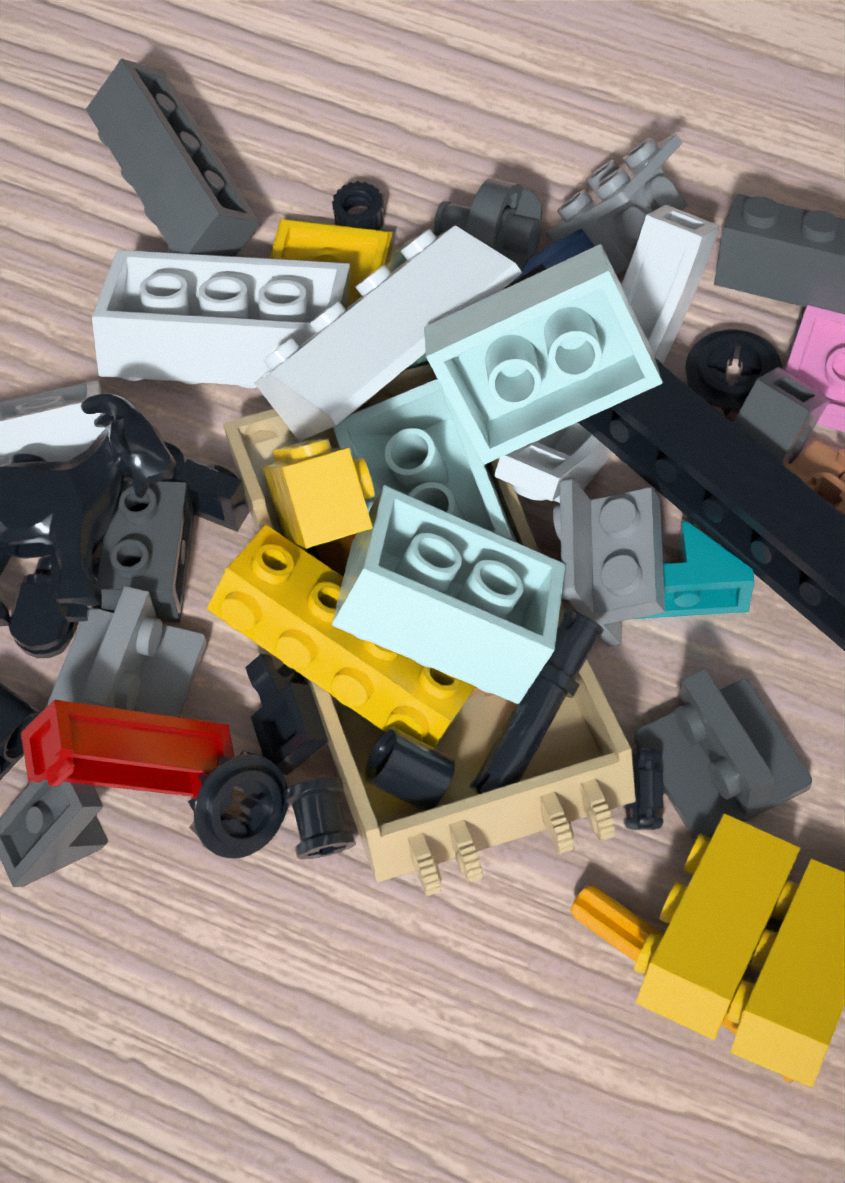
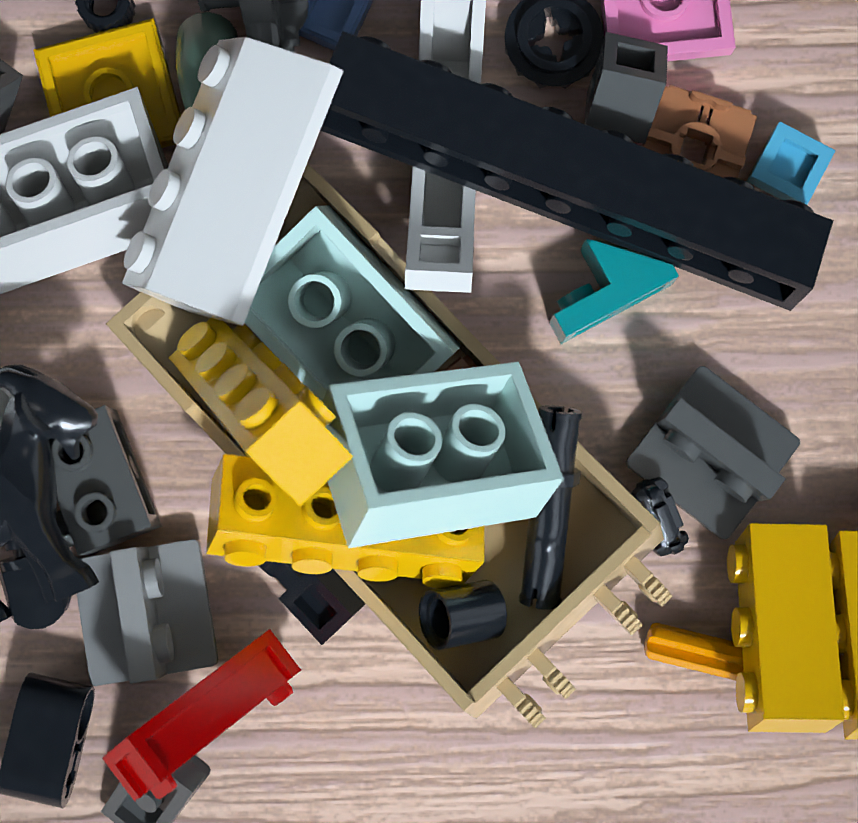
camera: 30 degrees left, 25 degrees up
(213, 491) = (124, 391): black plate -> none
(260, 812) = (335, 683): black gear -> none
(319, 818) = (393, 676): black bush -> none
(541, 355) = (410, 167): light aqua brick -> none
(611, 555) = (543, 312): light grey bracket -> none

